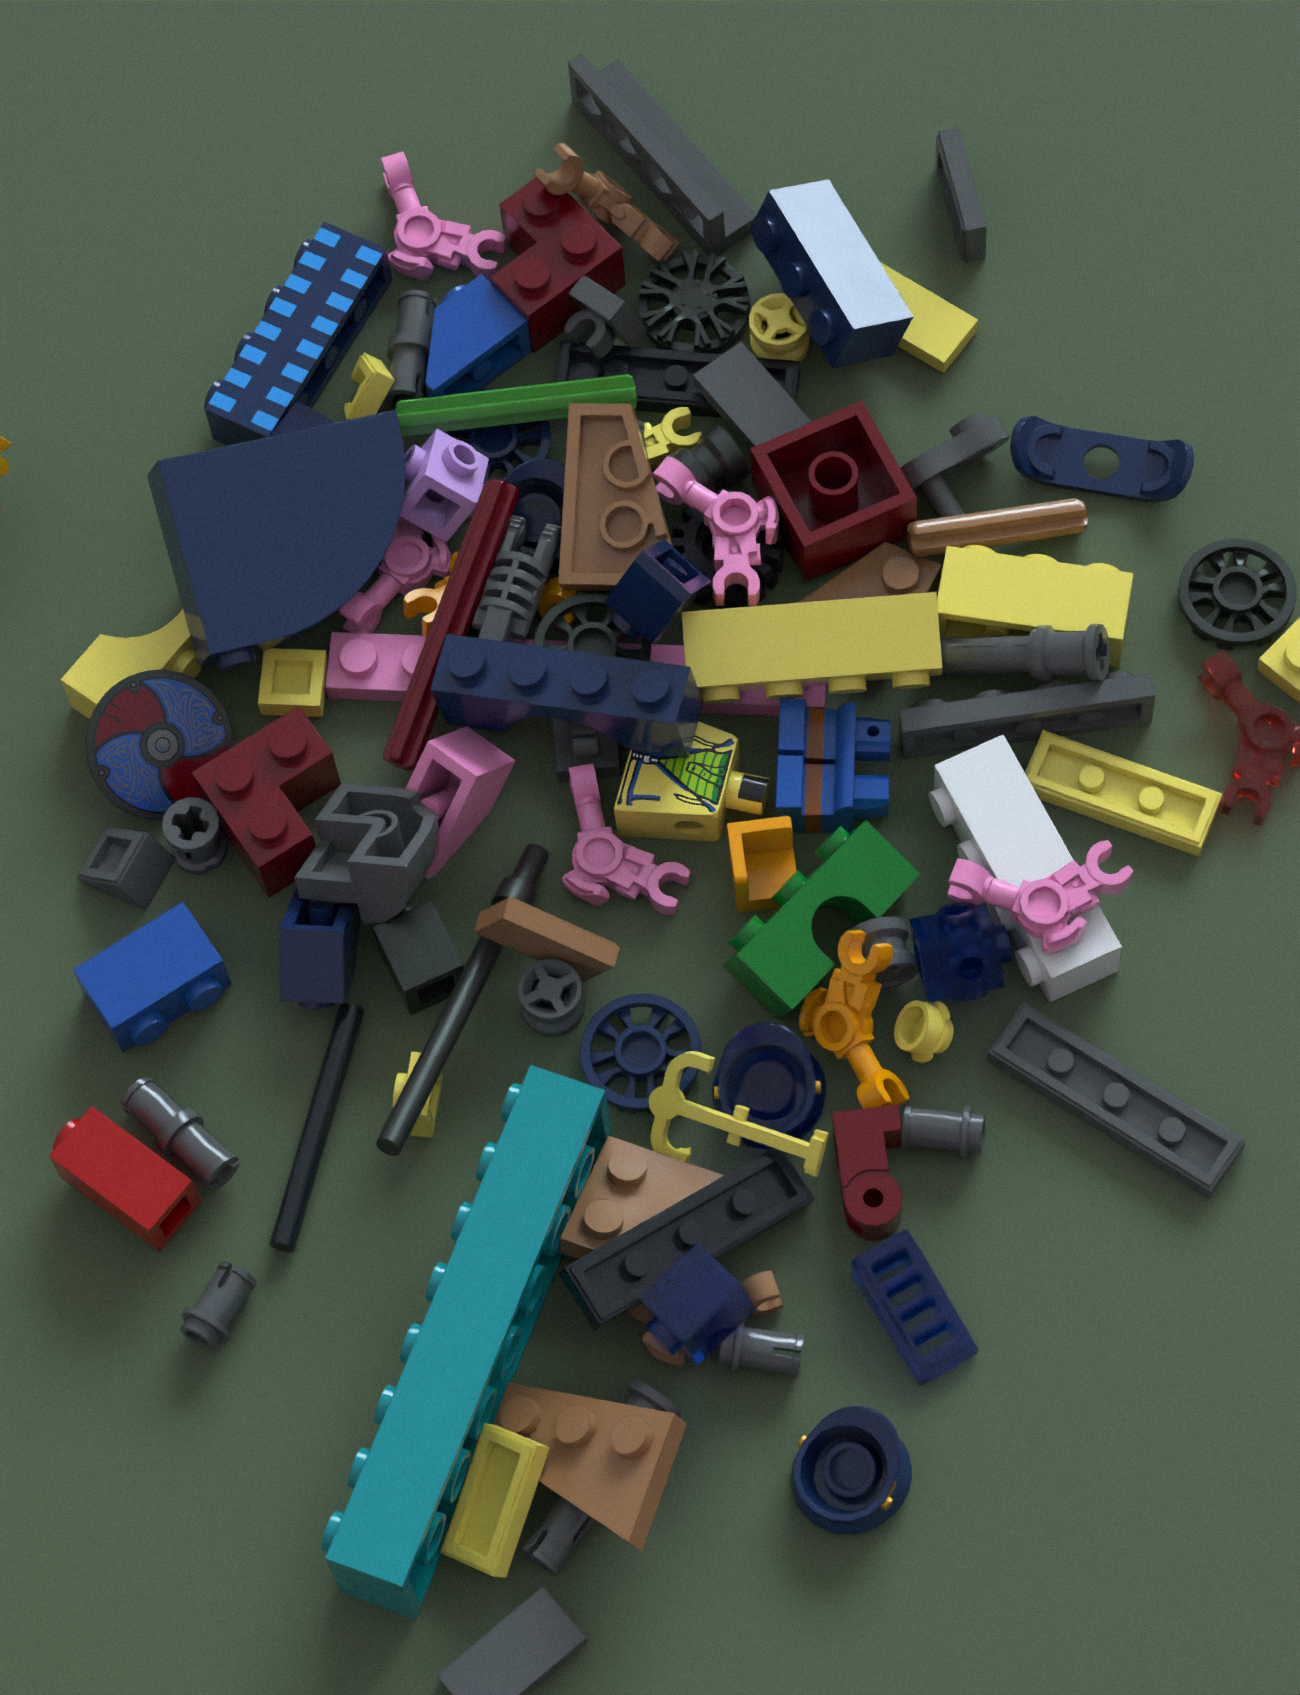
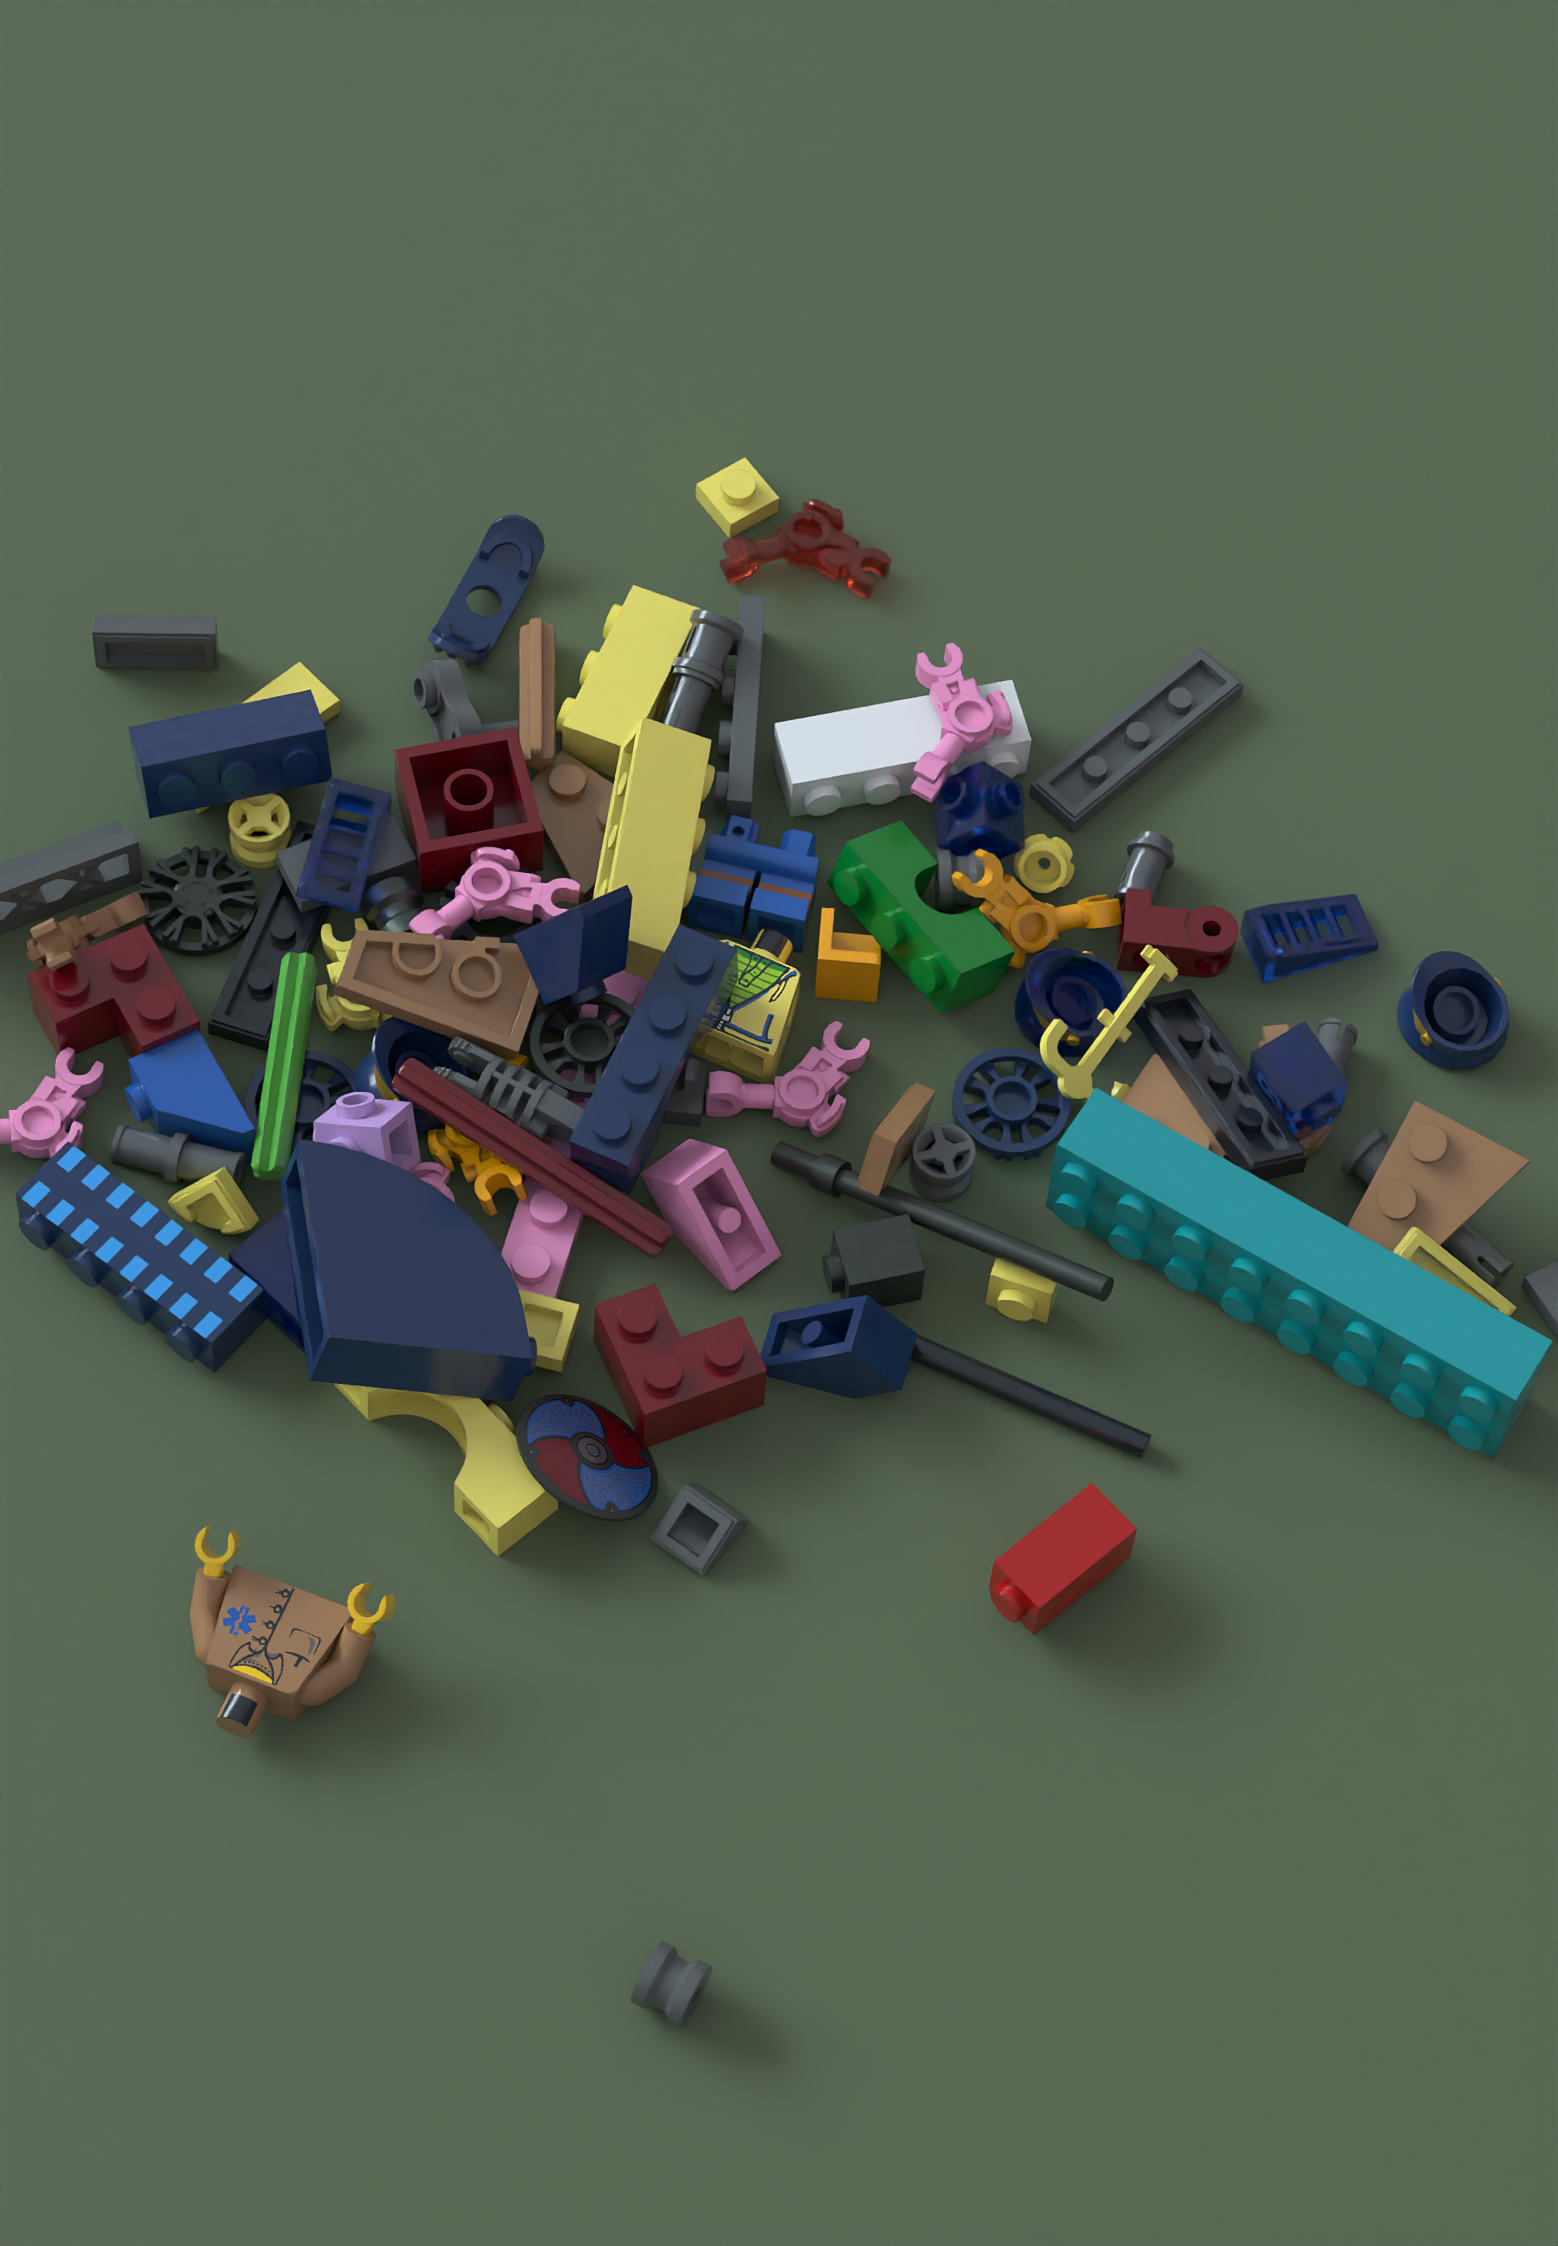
camera: 90 degrees left, 5 degrees down
(153, 978) = (844, 1507): blue brick -> none
(180, 1133) = (1013, 1513): dark grey pin -> none
(183, 823) = (683, 1430): dark grey bush -> none
(217, 1306) = (1201, 1508): dark grey pin -> none
(370, 850) = (769, 1267): dark grey brick -> none
(604, 314) = (204, 962): dark grey tile -> none
(774, 410) = (357, 800): none -> clear blue slope
(1122, 793) = (836, 660): light yellow tile -> none
(1236, 593) = (653, 529): pearl dark grey wheel -> none

